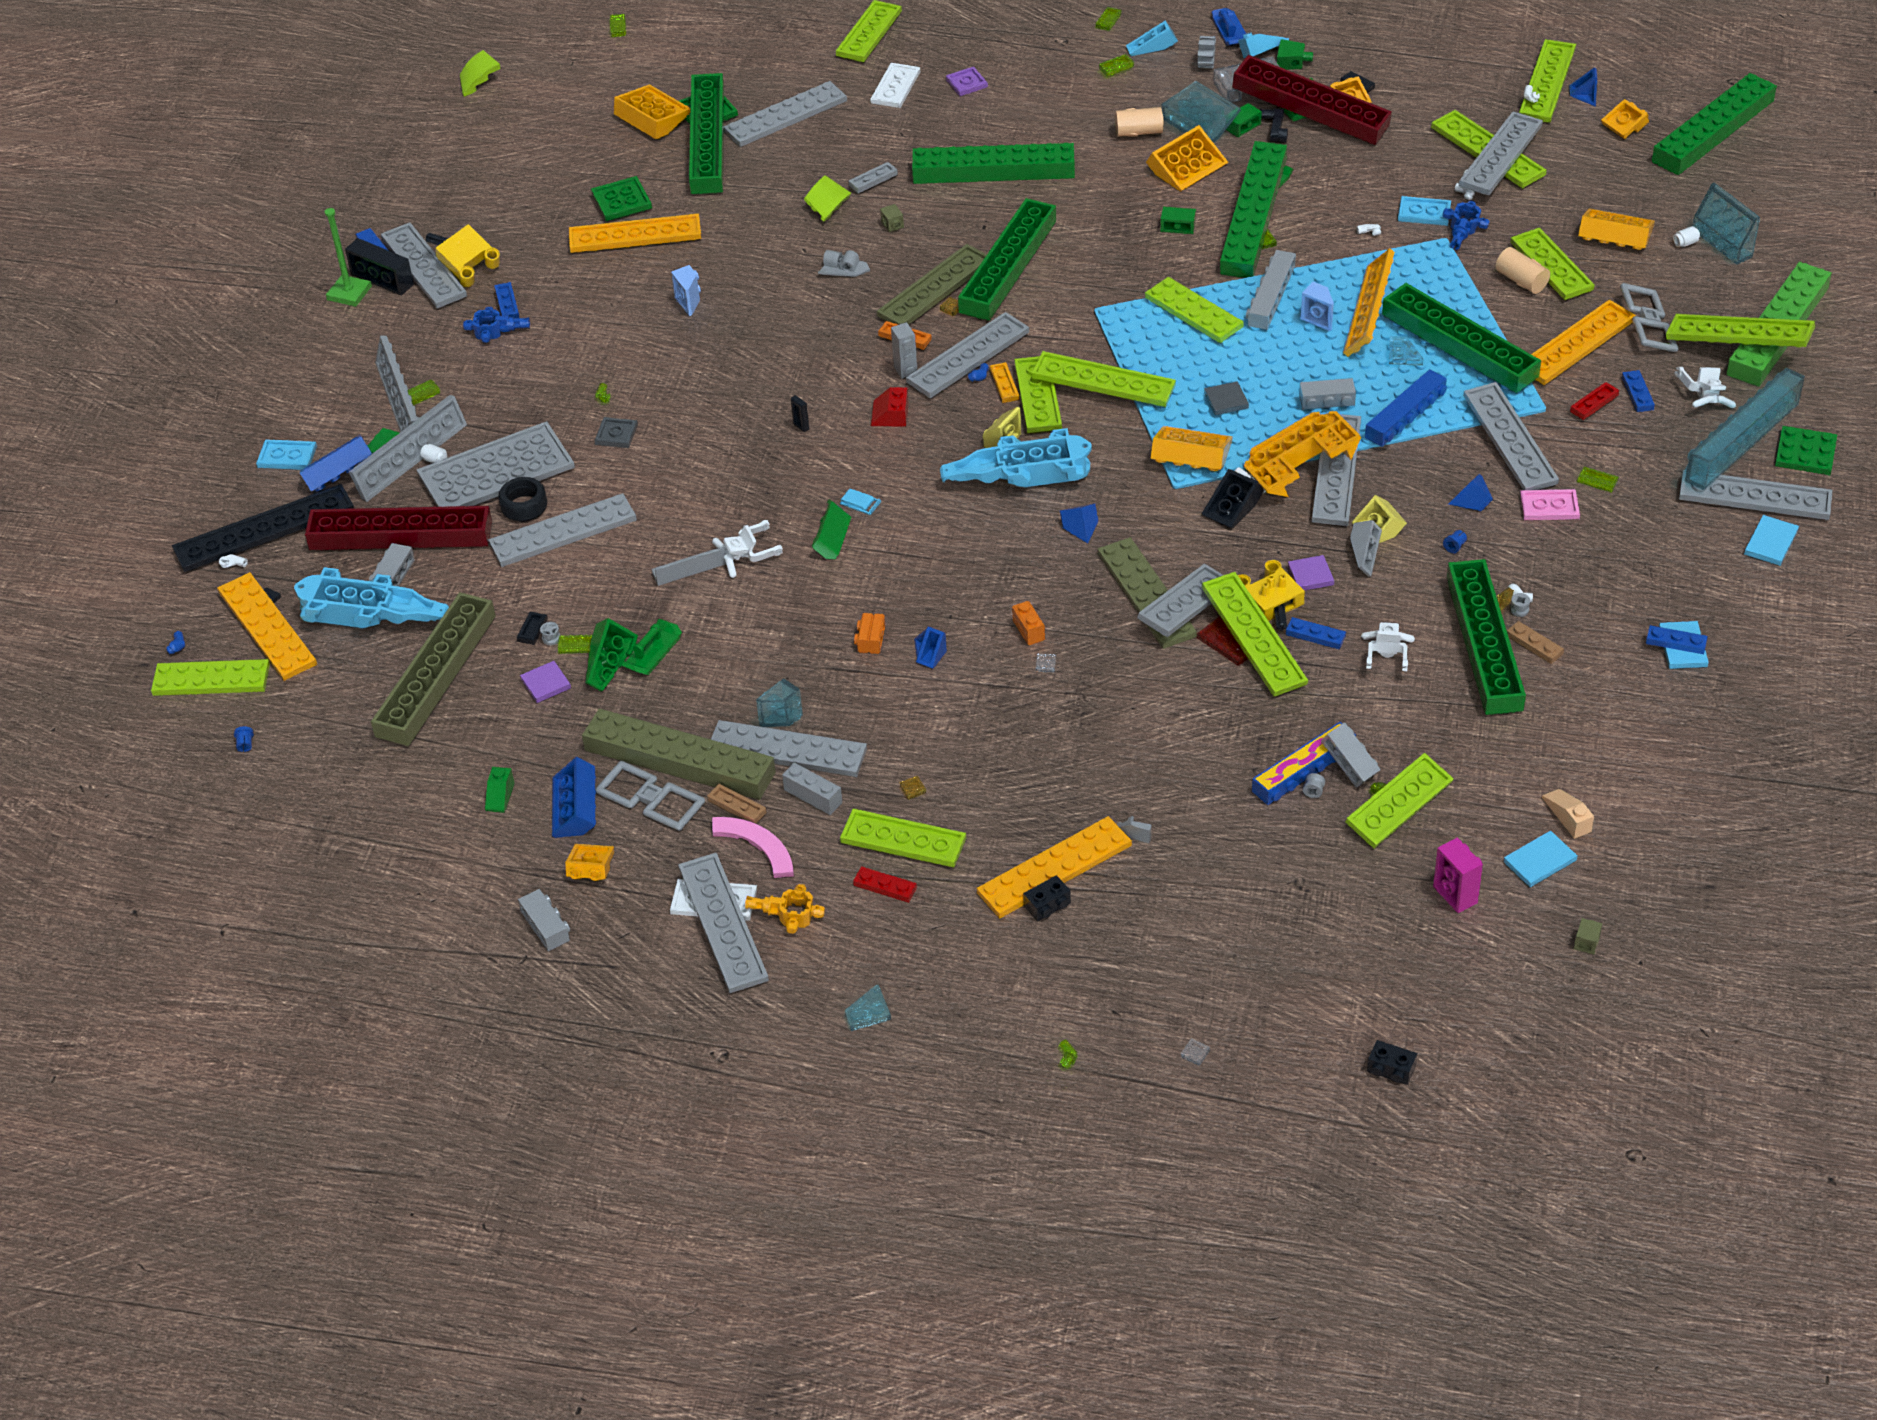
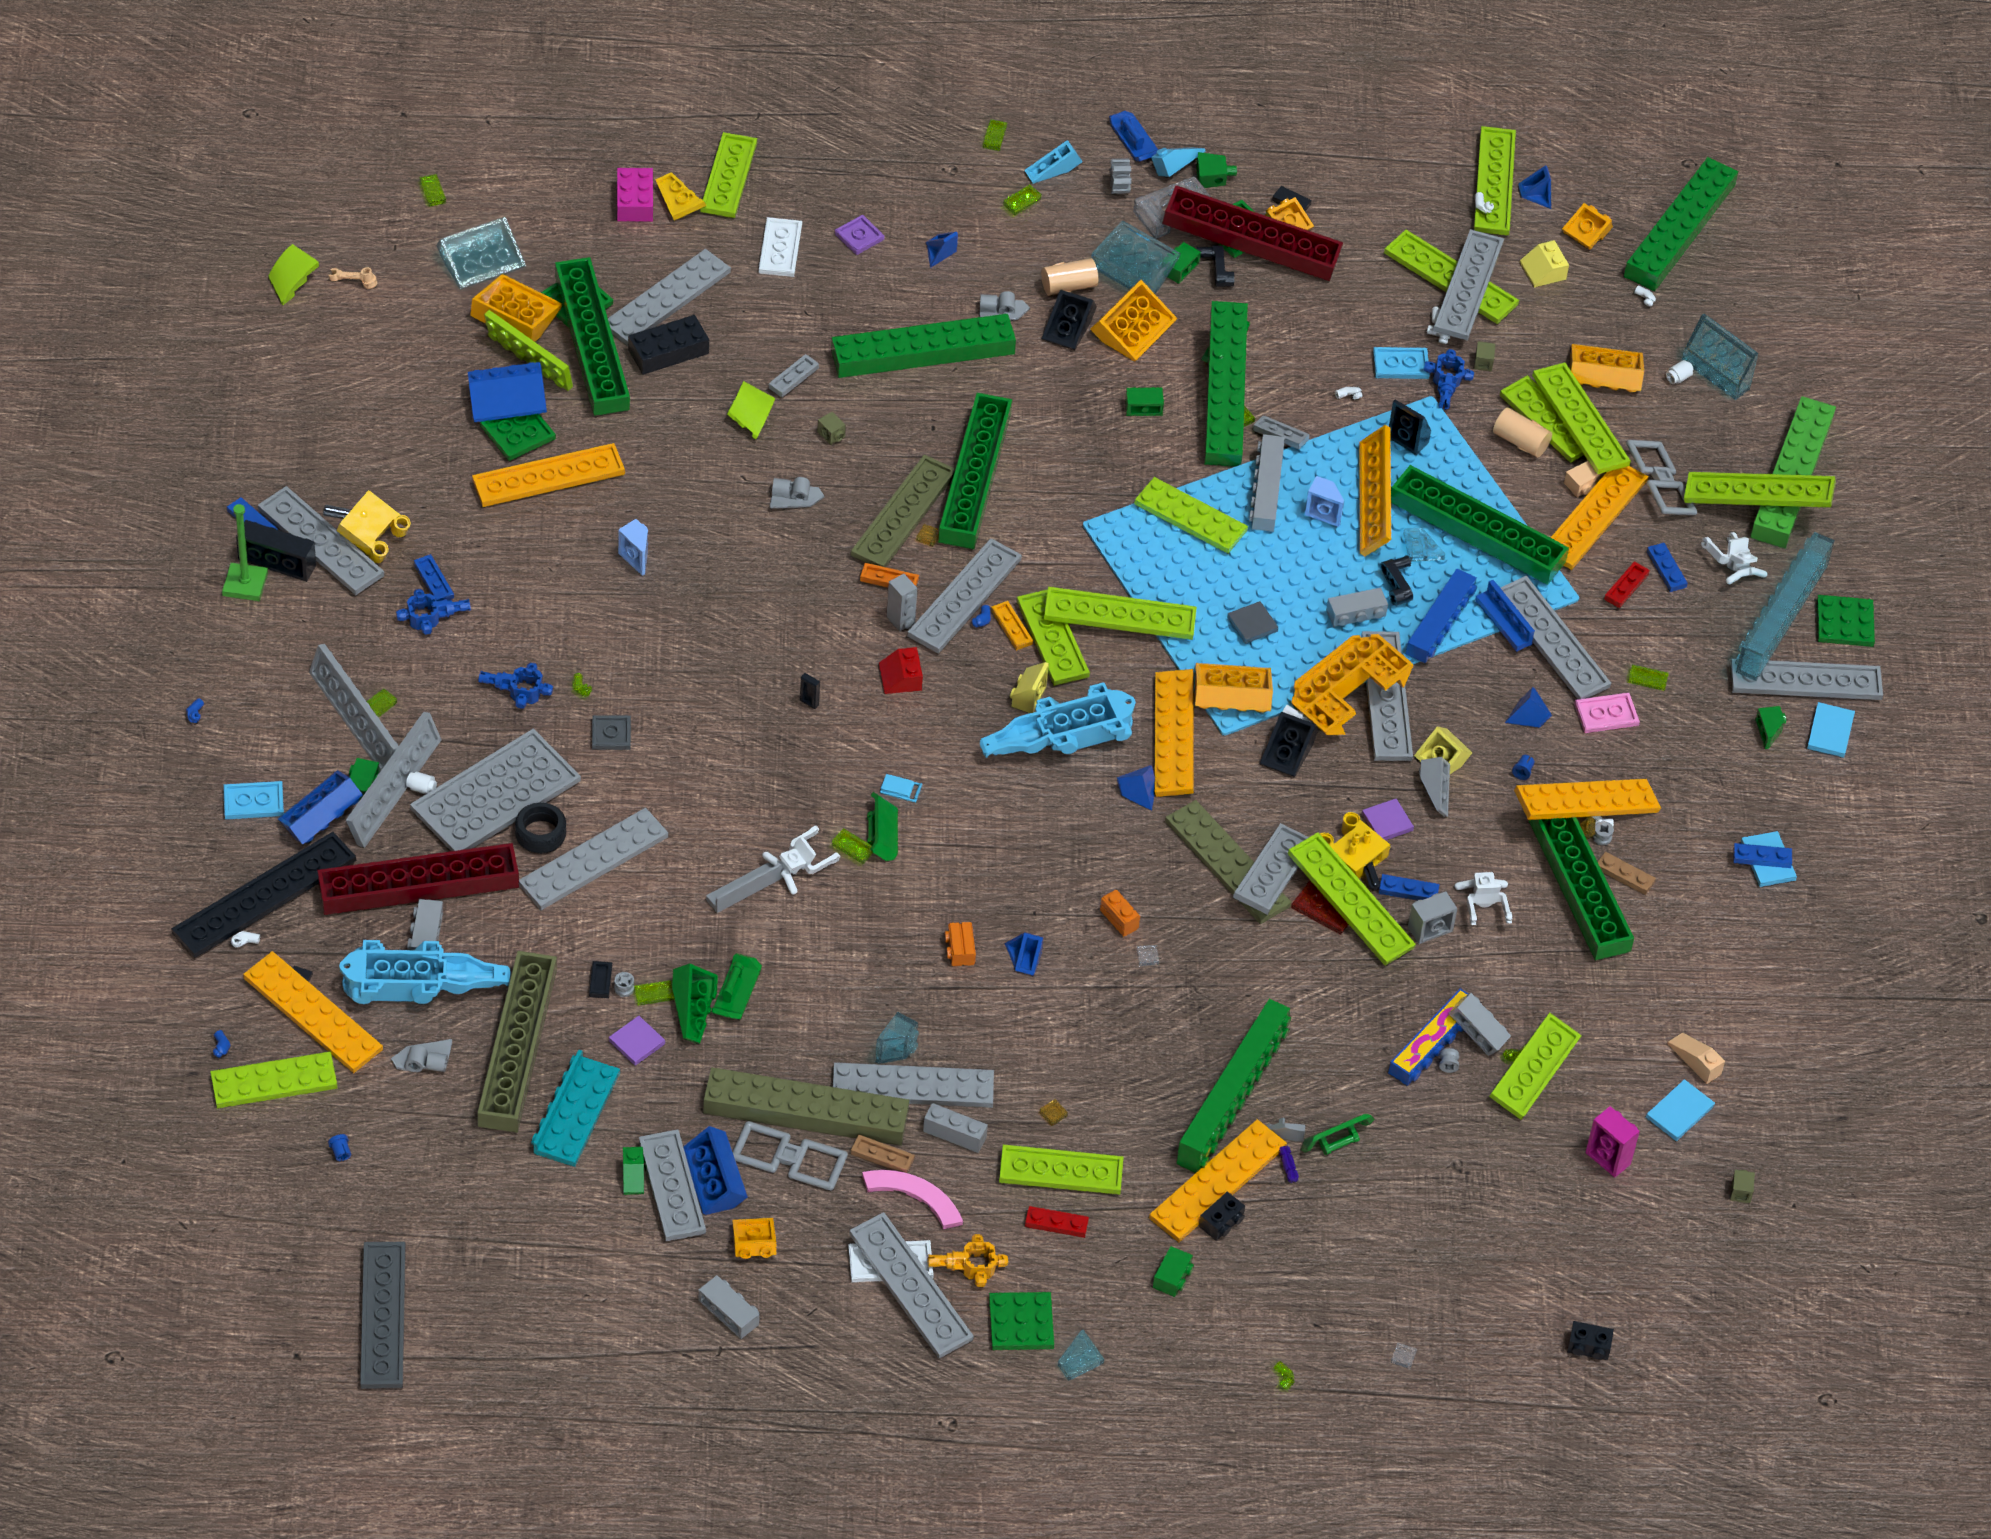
camera: 20 degrees left, 5 degrees up
(223, 886) = (383, 1315): none -> dark grey plate
(264, 381) = (192, 711): none -> blue arm
(354, 674) = (424, 1056): none -> light grey panel
(466, 732) = (574, 1110): none -> teal bracket
(530, 807) = (672, 1185): none -> light grey plate
(536, 78) = (366, 276): none -> light nougat brick
(544, 384) = (510, 681): none -> blue piece
(620, 167) = (507, 392): none -> blue slope
(638, 67) = (481, 253): none -> clear light blue slope
(649, 139) = (528, 350): none -> lime plate
(772, 145) = (668, 344): none -> black brick
(783, 38) = (635, 194): none -> dark pink brick
(798, 542) = (852, 846): none -> clear neon green plate
(819, 42) = (678, 197): none -> yellow wing
(821, 969) = (1021, 1321): none -> green plate
(983, 942) = (1173, 1271): none -> green brick
(1035, 94) = (941, 247): none -> blue slope
(1078, 137) = (1003, 304): none -> light grey panel
(1090, 782) = (1233, 1086): none -> green brick
(1126, 482) = (1174, 732): none -> light orange plate
(1128, 860) = (1288, 1164): none -> dark purple axle
(1129, 153) = (1069, 319): none -> black slope
(1211, 826) = (1353, 1137): none -> green piece
(1303, 255) = (1272, 427): none -> light grey plate
(1328, 657) = (1432, 917): none -> light grey brick
(1373, 384) = (1401, 590): none -> black beam
(1413, 254) = (1408, 428): none -> black slope
(1468, 414) = (1505, 616): none -> blue fence
(1503, 210) = (1484, 356): none -> olive brick
(1508, 570) = (1587, 799): none -> light orange plate
(1575, 309) = (1581, 479): none -> light nougat slope
(1578, 145) = (1545, 264): none -> light yellow slope
(1581, 263) = (1581, 418): none -> lime plate
(1670, 176) = (1645, 293): none -> white arm
(1710, 528) = (1770, 724): none -> green slope

